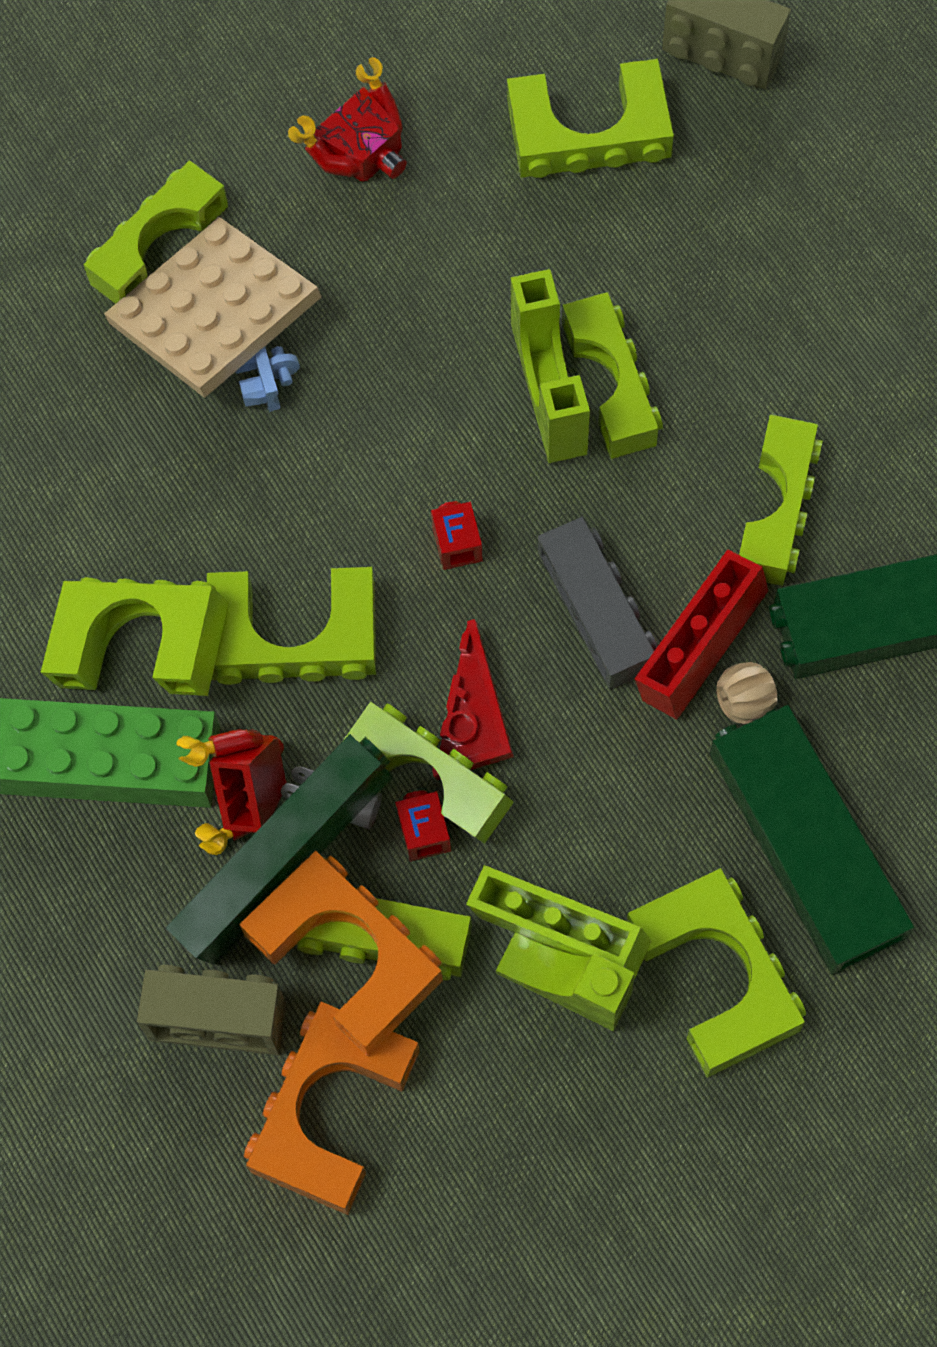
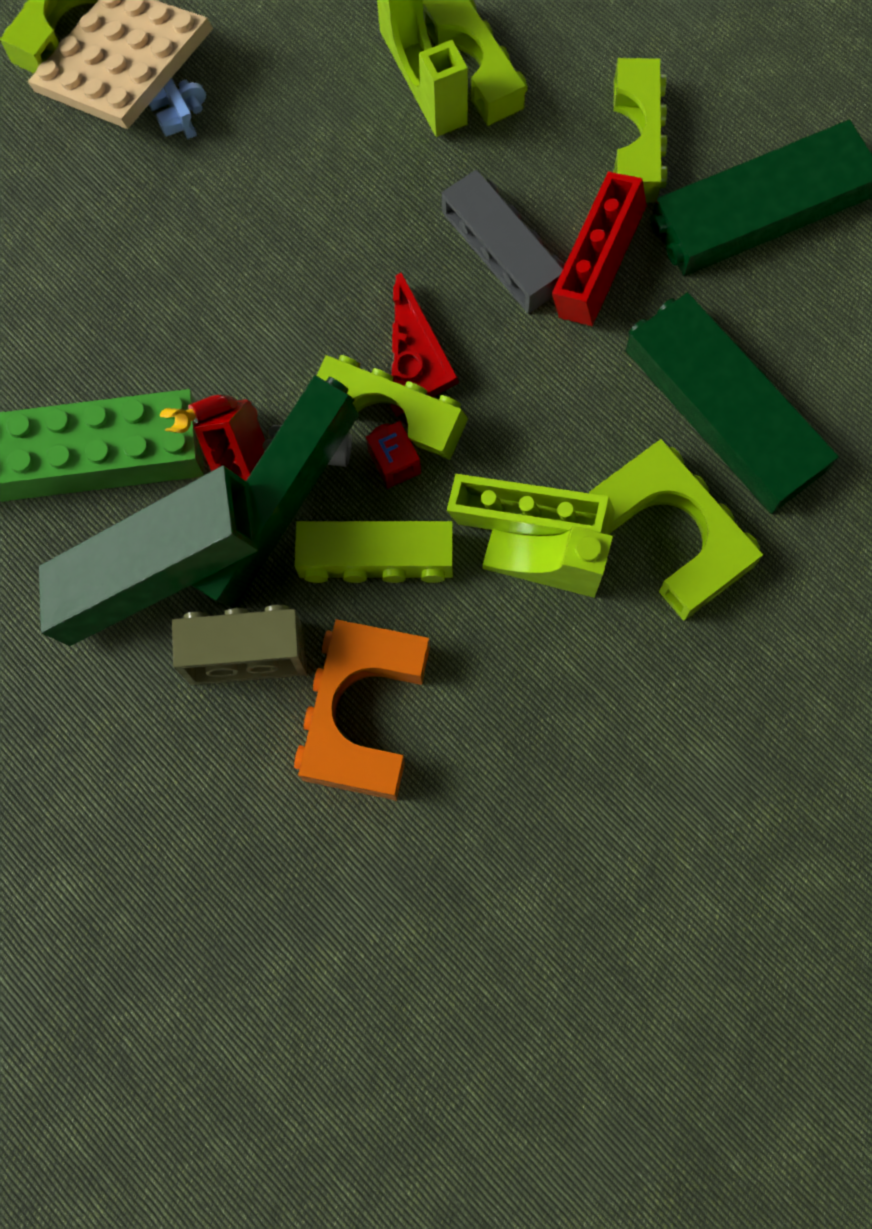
camera: 10 degrees left, 5 degrees up
(94, 610) = (69, 324): lime arch -> none
(131, 896) = (147, 557): none -> brick
(321, 895) = (318, 525): orange arch -> none
(341, 649) = (205, 340): lime arch -> none
(456, 534) = (370, 207): red brick -> none
(746, 692) = (647, 290): tan piece -> none

